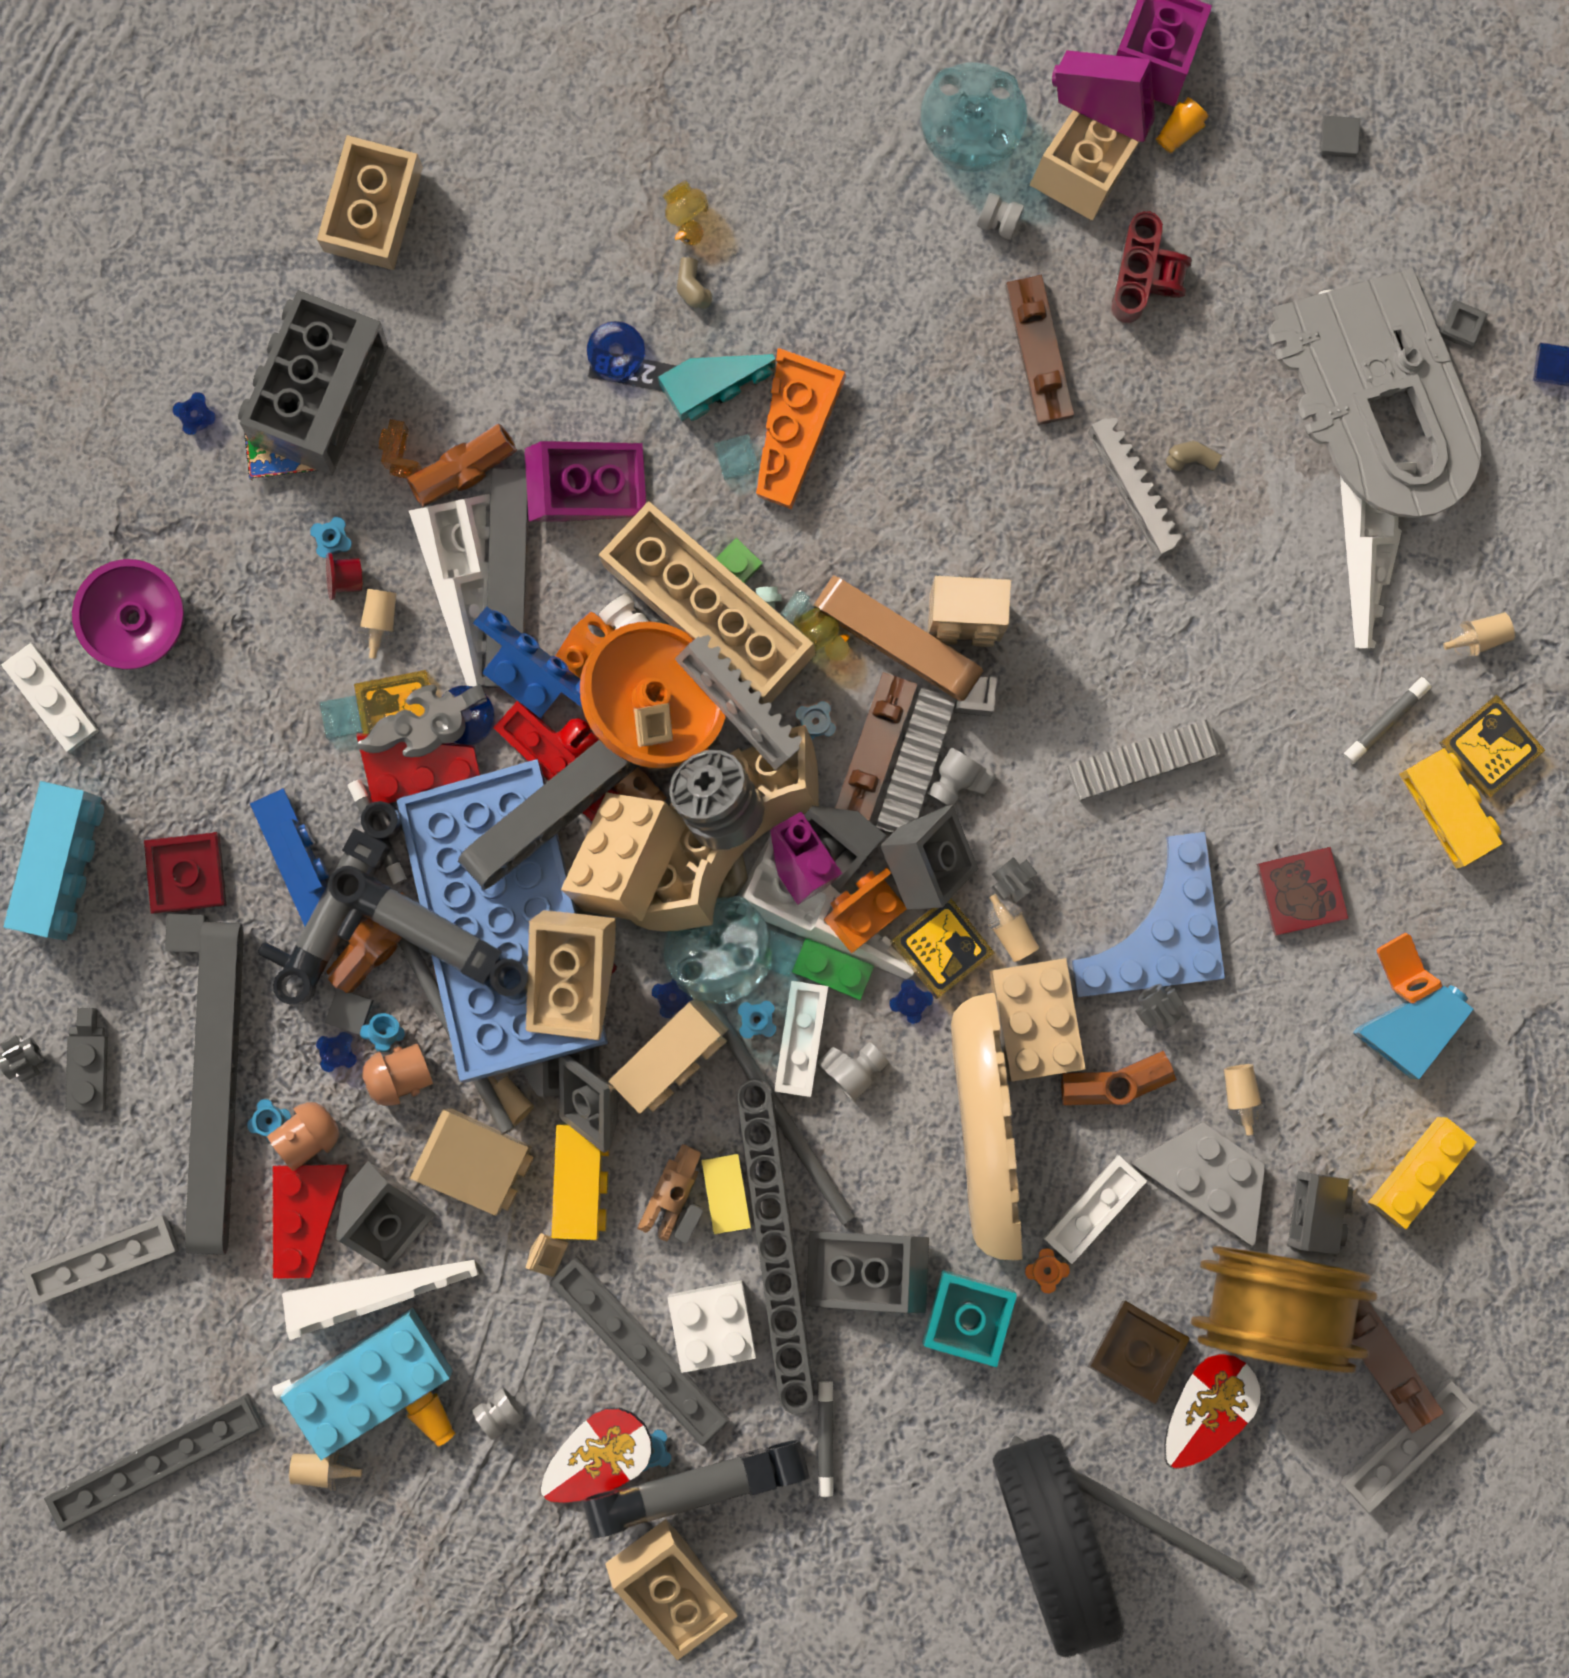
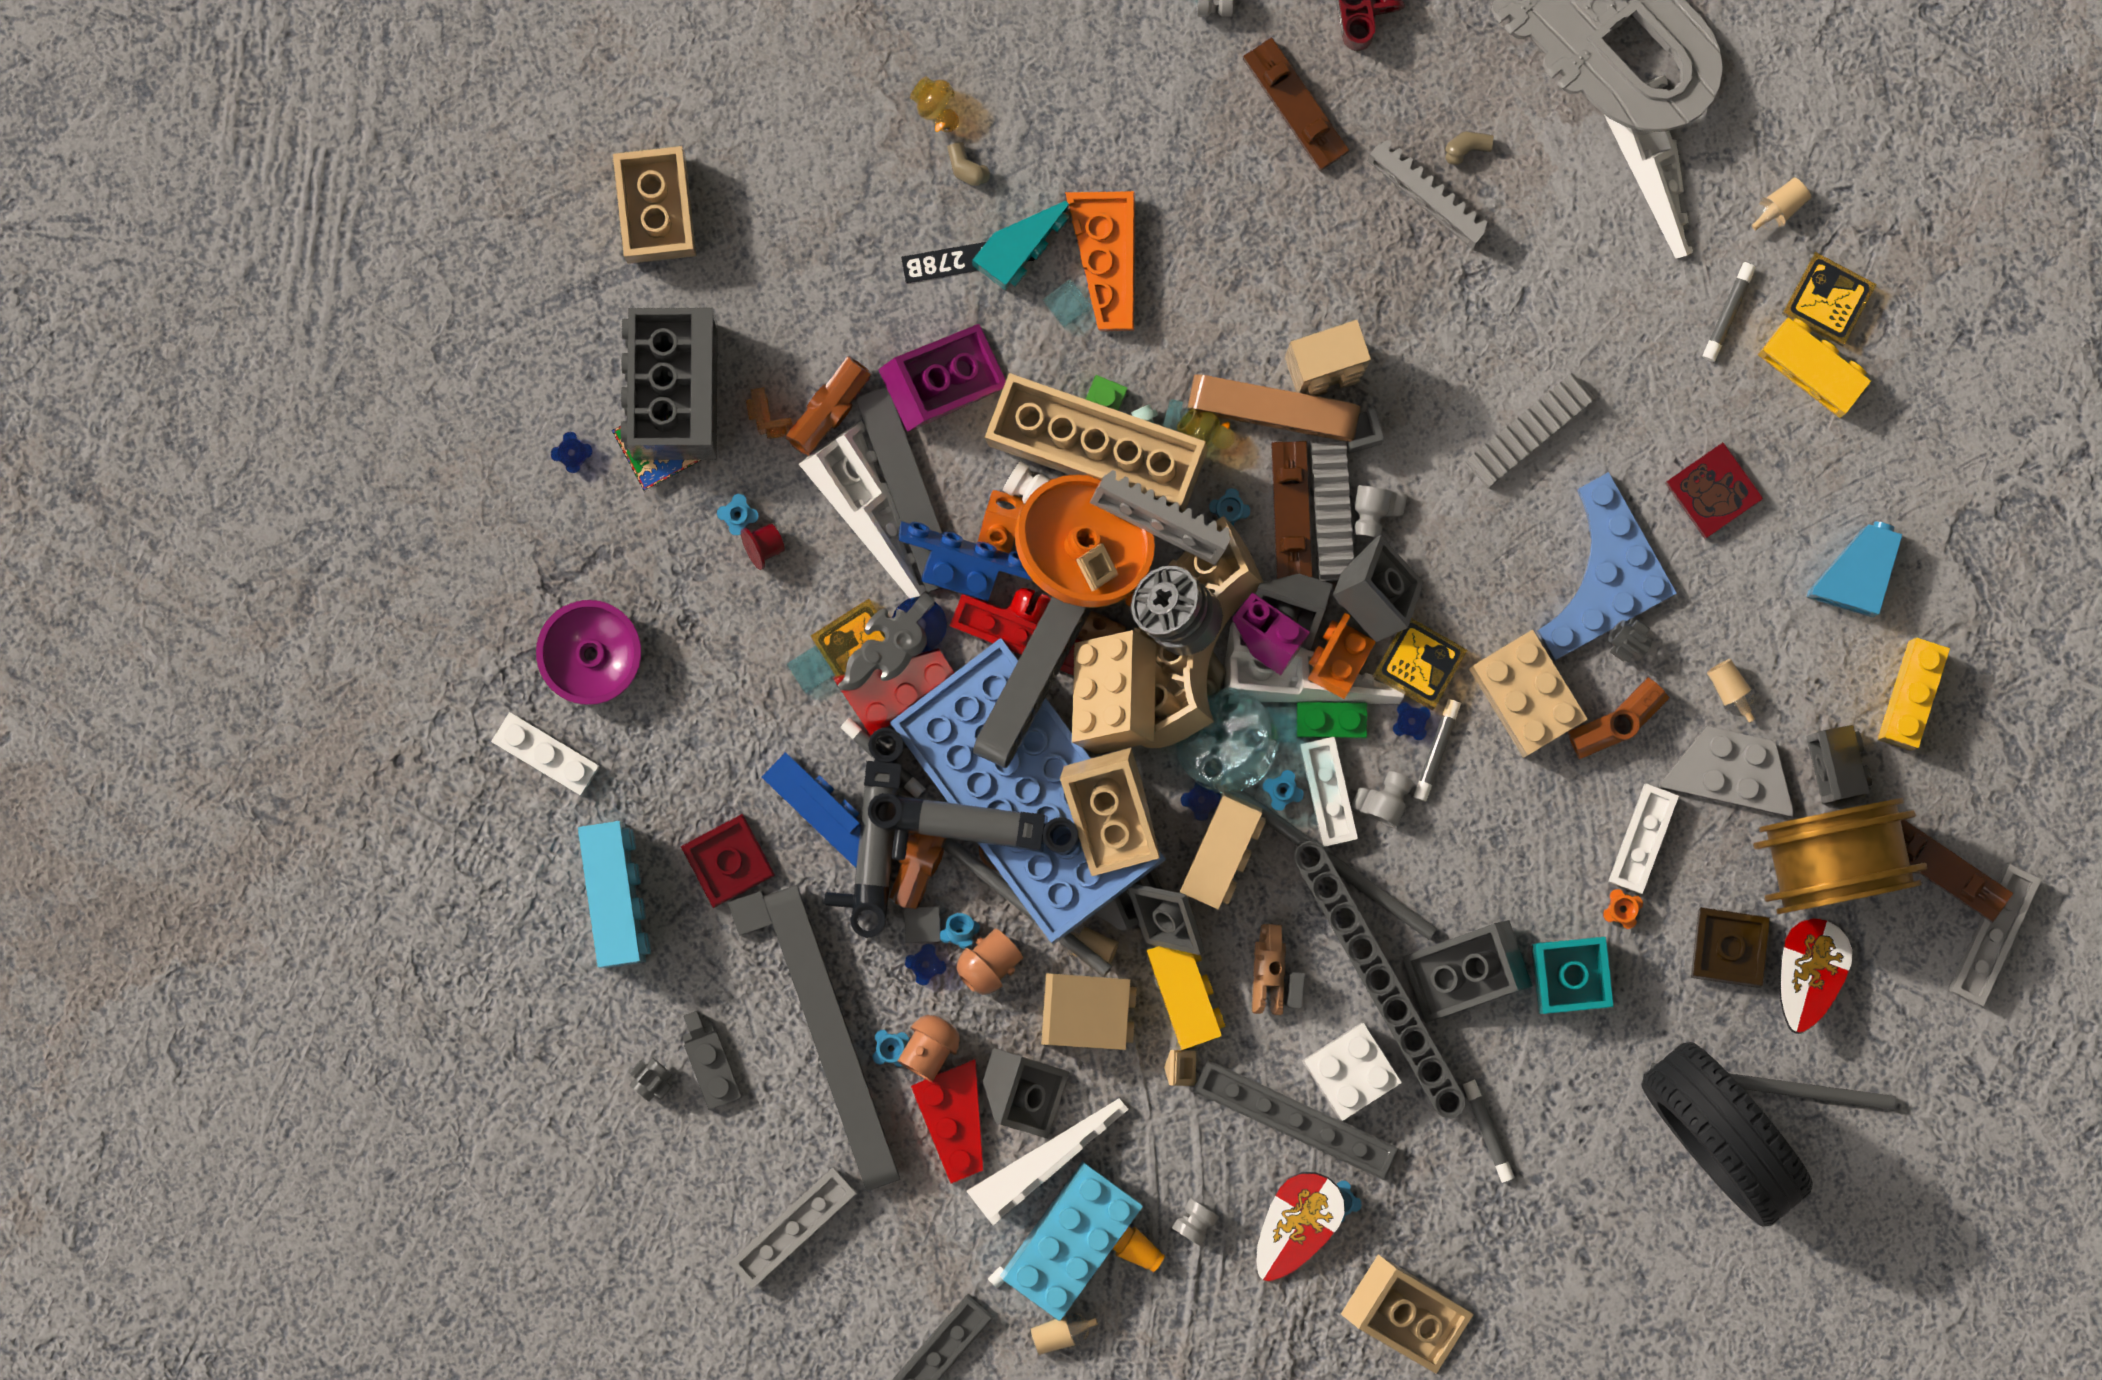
camera: 25 degrees left, 0 degrees up
(377, 620) = (809, 572): tan piece -> none
(616, 335) = (923, 267): clear blue piece -> none
(726, 1193) = (1316, 953): light yellow tile -> none
(747, 1474) = (1395, 1215): piece -> none
(923, 1042) = (1437, 750): none -> dark grey bar
(986, 1128) = (1522, 803): tan brick -> none
(1011, 928) = (1474, 623): tan piece -> none
(1014, 880) = (1459, 579): dark grey gear -> none
(1405, 969) = (1830, 523): orange bracket -> none

